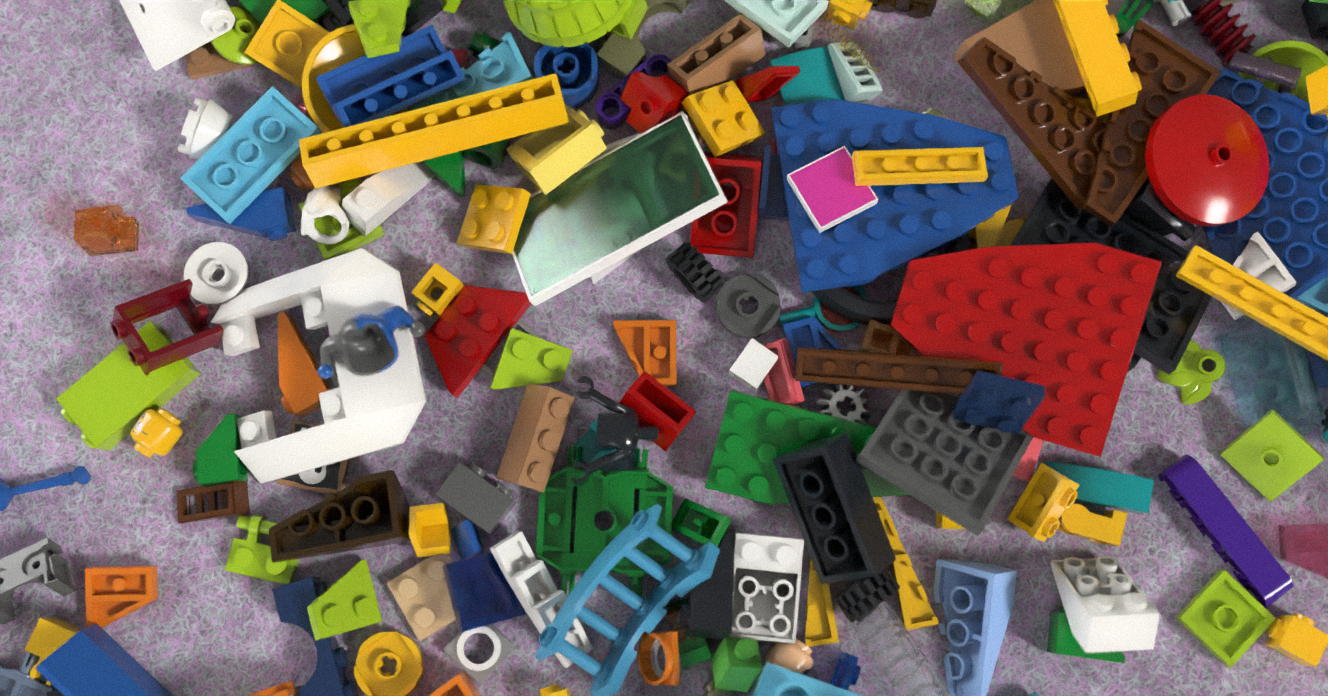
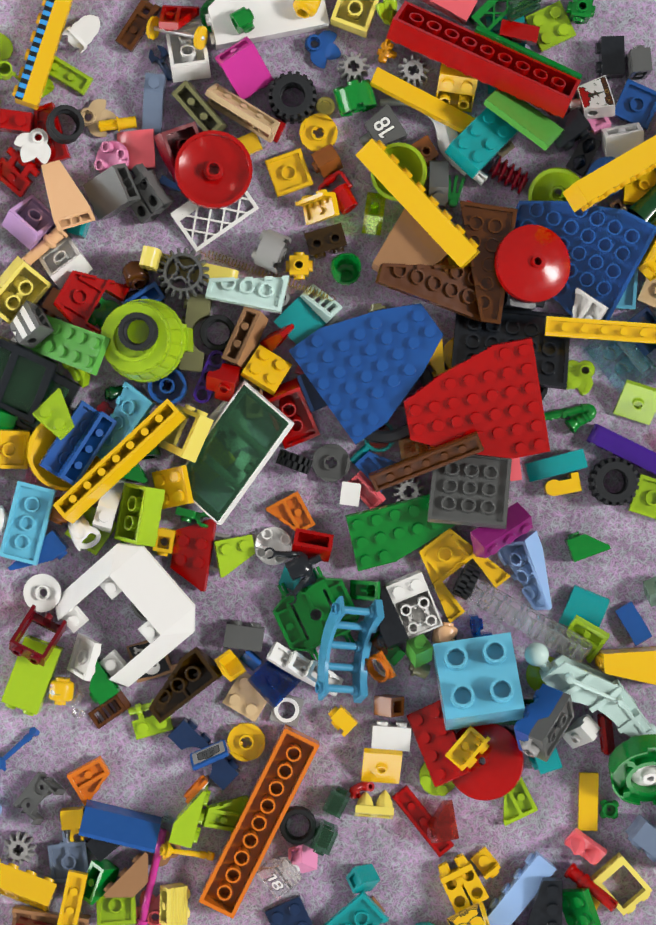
camera: 30 degrees left, 10 degrees up
(166, 468) = (75, 705): none -> clear arm
(218, 398) = (84, 657): none -> white plate
(297, 370) = (118, 622): orange slope -> none
(319, 654) = (209, 754): none -> slope
(346, 604) = (209, 724): lime wing -> none
(367, 342) = (151, 592): dark grey piece -> none
(423, 228) = (139, 514): none -> lime brick
(495, 271) = (189, 515): none -> green plate
(535, 437) = (258, 591): medium nougat brick -> none
(606, 375) = (274, 538): none -> white dish
(673, 16) = (204, 327): none -> black tyre
(829, 190) = (344, 383): dark pink tile -> none
(835, 510) = (429, 549): black slope -> none
(916, 38) = (346, 268): none -> green hair
(919, 166) = (383, 347): yellow tile -> none
(943, 543) = (489, 540): none -> magenta slope
(998, 402) = (484, 454): dark blue plate -> none
(1043, 503) = (533, 488): yellow bracket -> none
(1105, 605) = (586, 525): white slope -> none
(1163, 429) = (578, 415): none -> green piece
(1203, 553) = (628, 489): none -> black tyre
(1265, 69) = (540, 192): pin -> none

